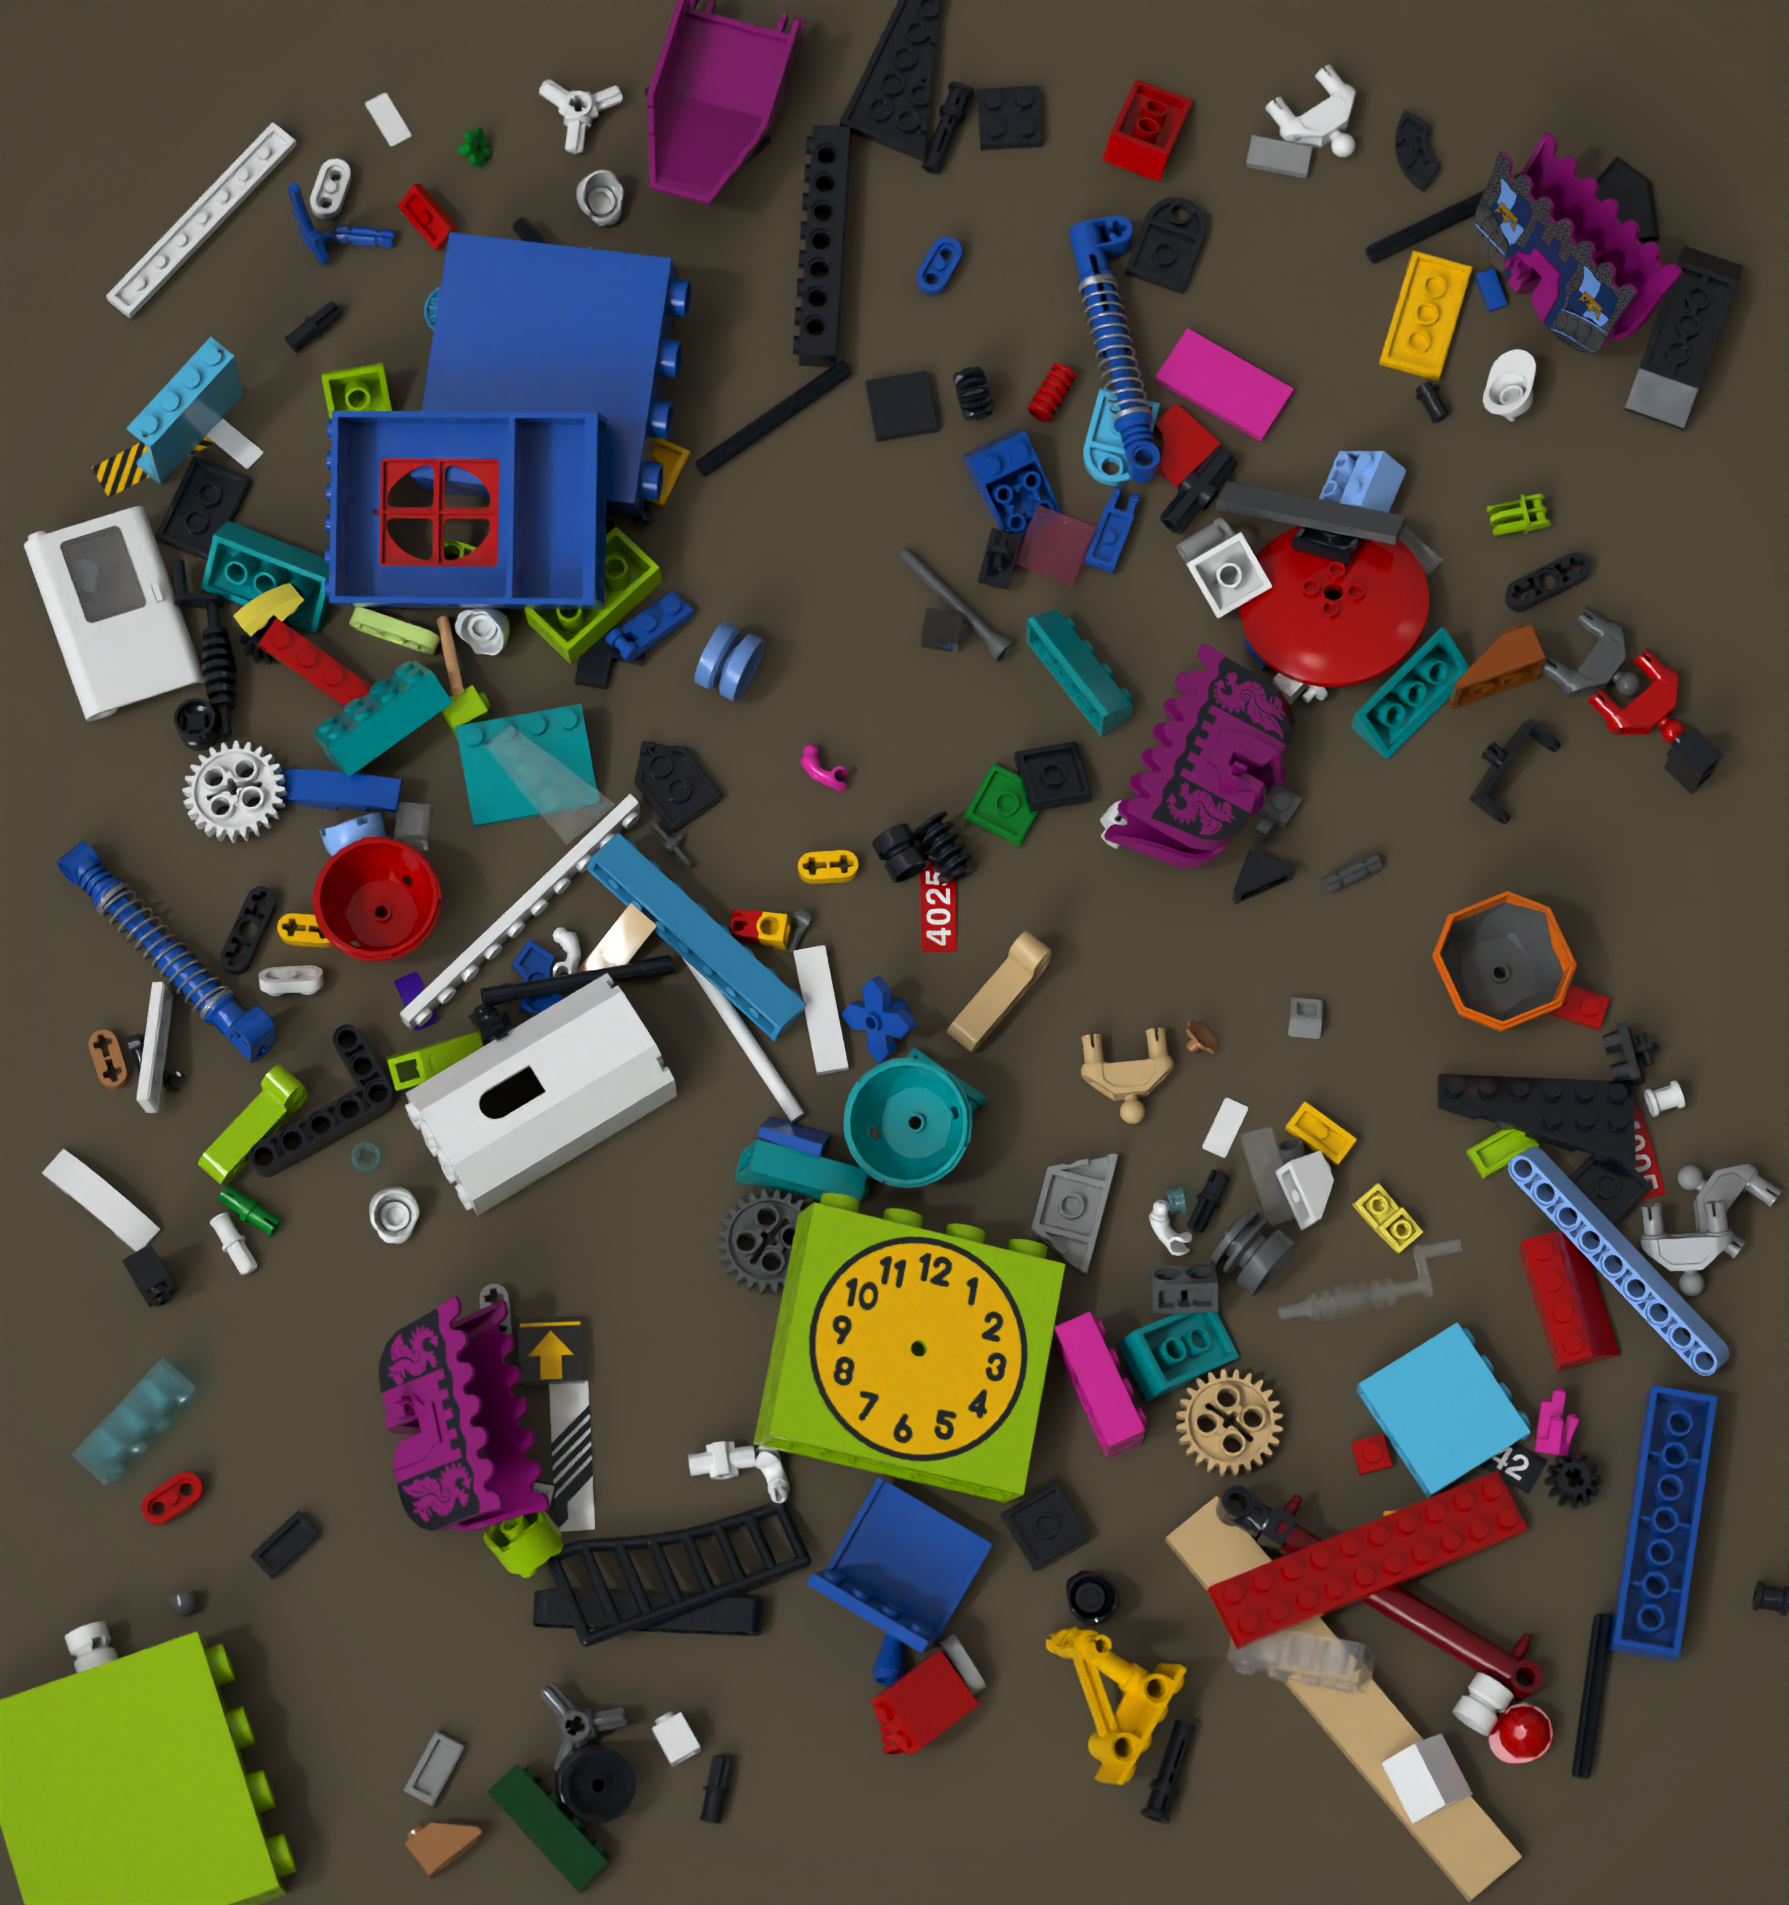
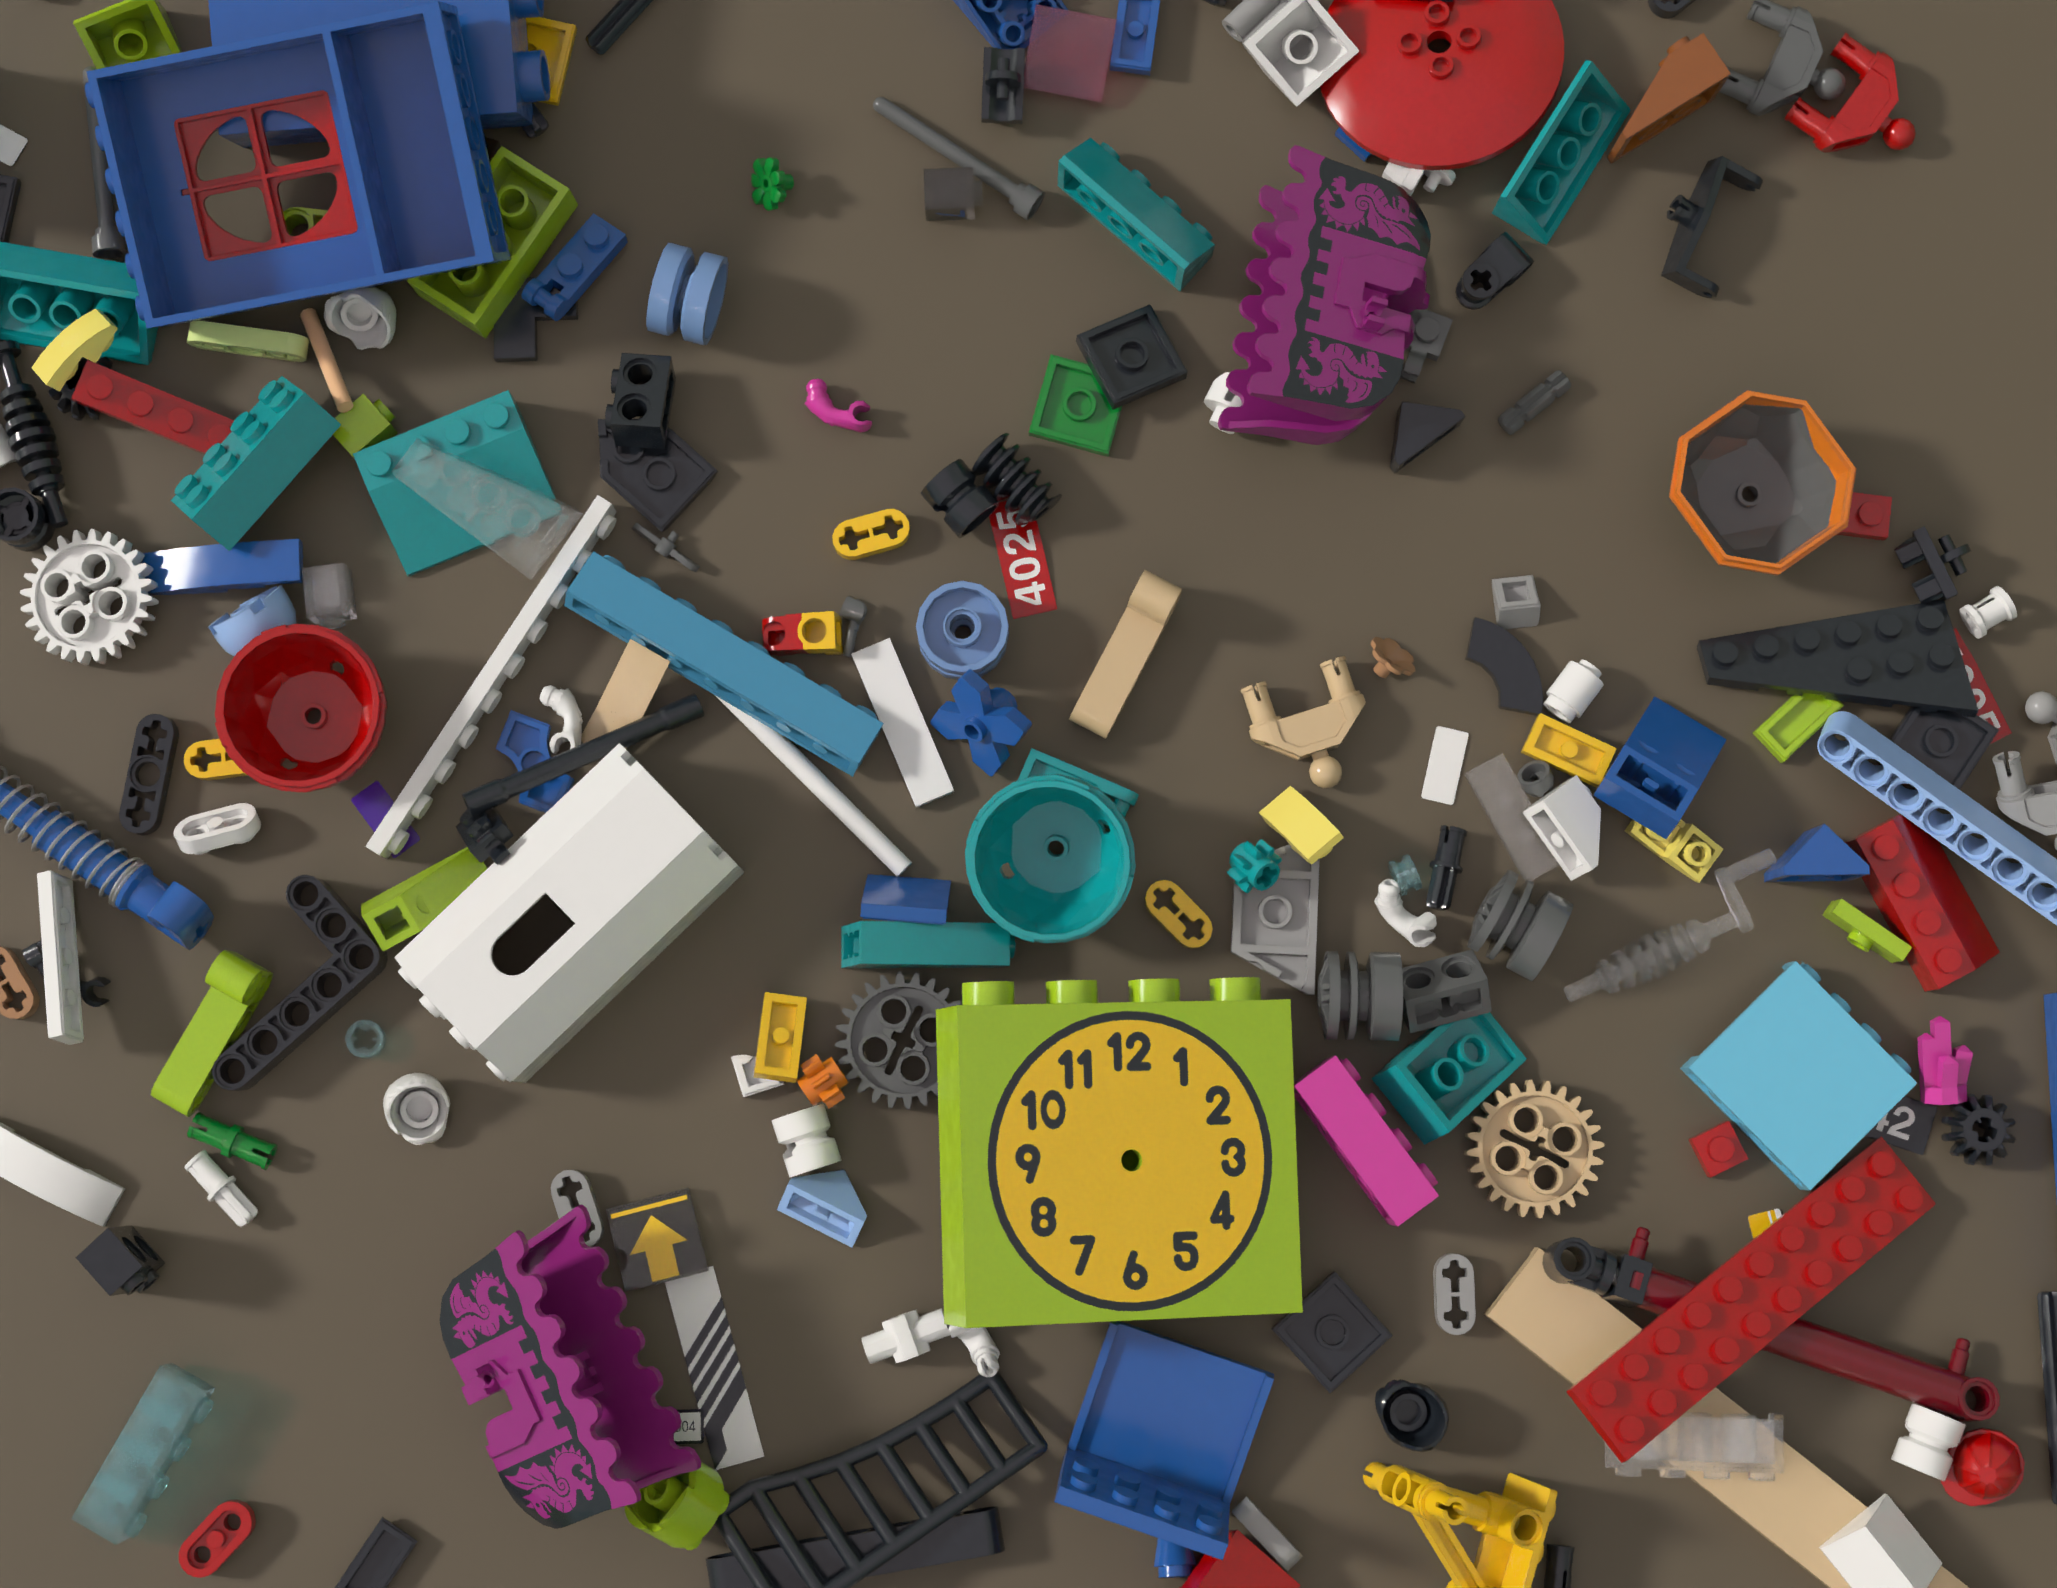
camera: 15 degrees left, 10 degrees up
(307, 536) = (107, 241): none -> dark grey piece
(652, 1245) = (744, 1068): none -> white tile
(677, 1219) = (780, 1037): none -> yellow plate
(678, 732) = (649, 400): none -> black brick
(679, 1298) = (806, 1140): none -> white wheel
(682, 1351) = (826, 1204): none -> light blue slope
(701, 1258) = (822, 1081): none -> orange gear
(809, 595) = (770, 183): none -> green plant
(886, 932) = (957, 606): none -> medium blue wheel
(1004, 1190) = (1185, 907): none -> yellow beam
(1061, 1165) = (1254, 866): none -> teal gear
(1104, 1145) = (1301, 825): none -> light yellow slope
(1120, 1278) = (1361, 996): none -> dark grey wheel
(1137, 1518) = (1443, 1294): none -> light grey beam
(1289, 1062) = (1508, 665): none -> black tile
(1334, 1090) = (1573, 690): none -> white brick
(1345, 768) = (1496, 269): none -> black piece
(1385, 1158) = (1660, 768): none -> blue slope
(1489, 1252) = (1817, 857): none -> blue slope
(1518, 1316) = (1865, 932): none -> lime plate
(1692, 759) = (1935, 166): black brick -> none

